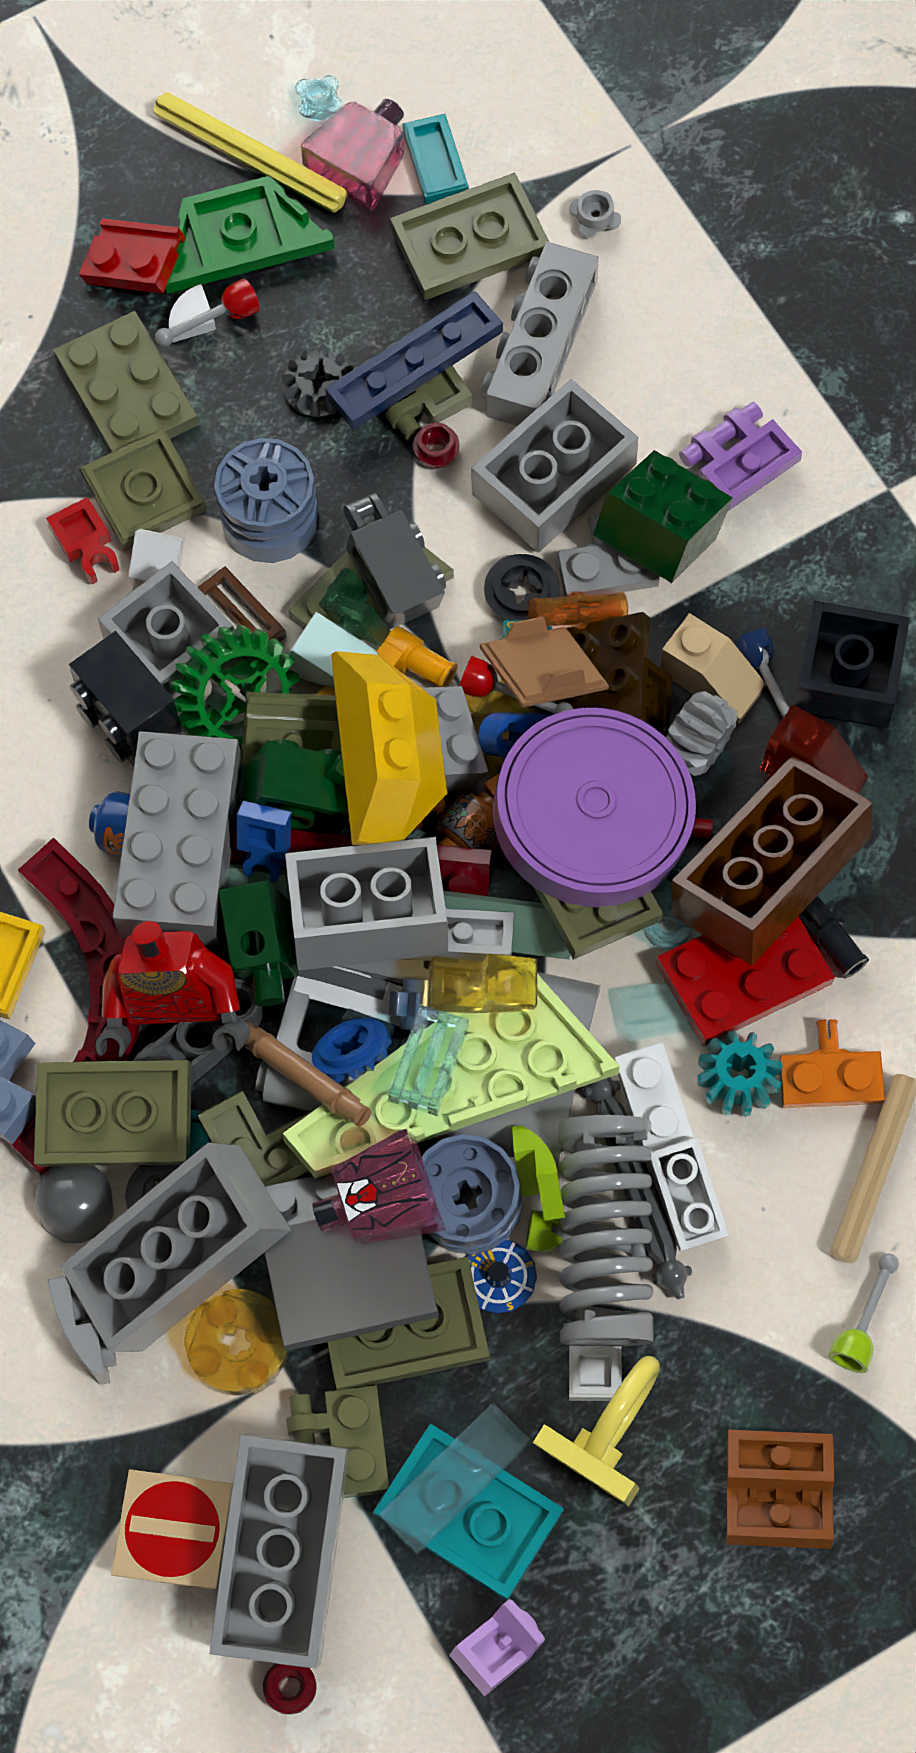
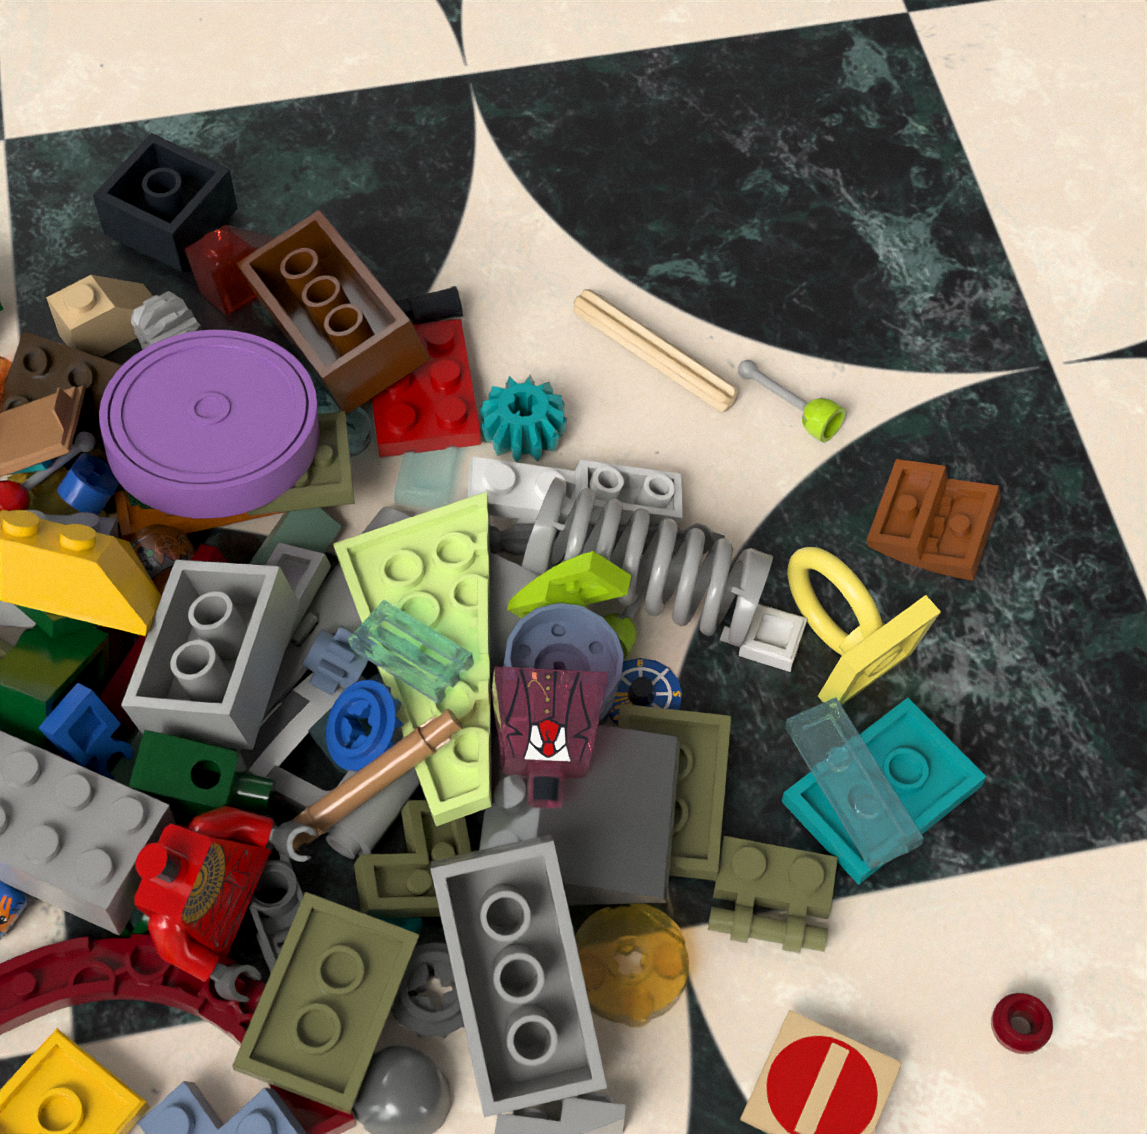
camera: 75 degrees left, 10 degrees down
(279, 1551) = (888, 971): light grey brick -> none
(484, 986) = (351, 580): clear yellow slope -> none
(498, 1647) = (1030, 801): lavender bracket -> none
(758, 650) = (111, 269): dark blue hinge -> none
(831, 1074) = (553, 350): orange plate -> none

